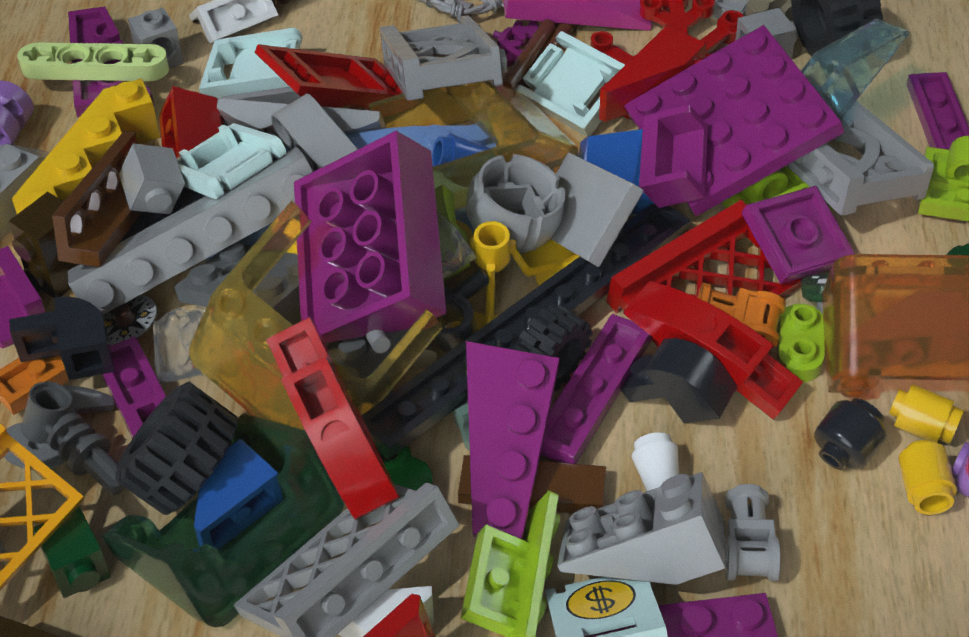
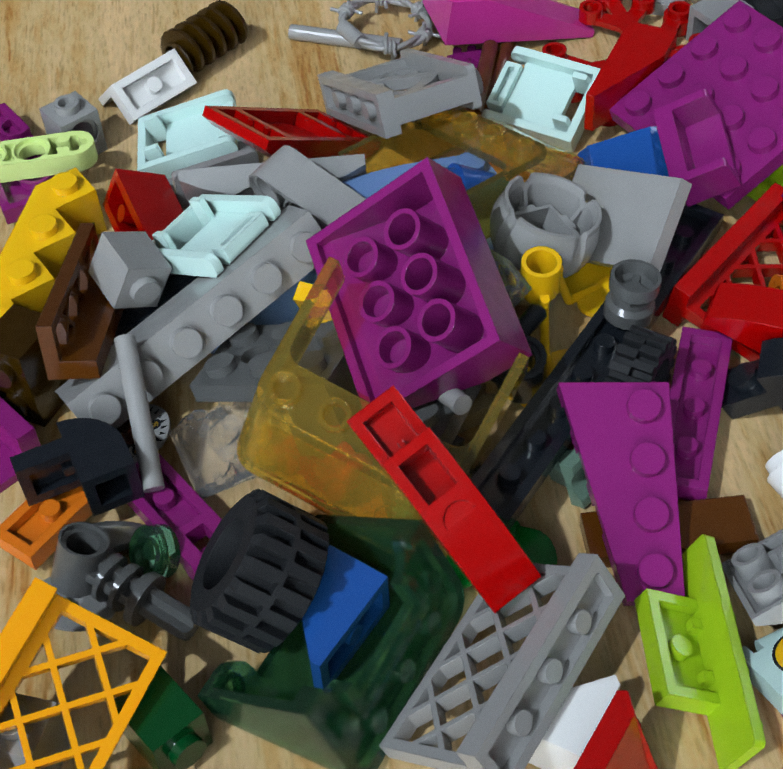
camera: 10 degrees left, 0 degrees up
(109, 417) = (155, 549): none -> clear green tile
(124, 302) = (139, 413): none -> light grey bar
(567, 277) = (632, 294): none -> dark grey wheel

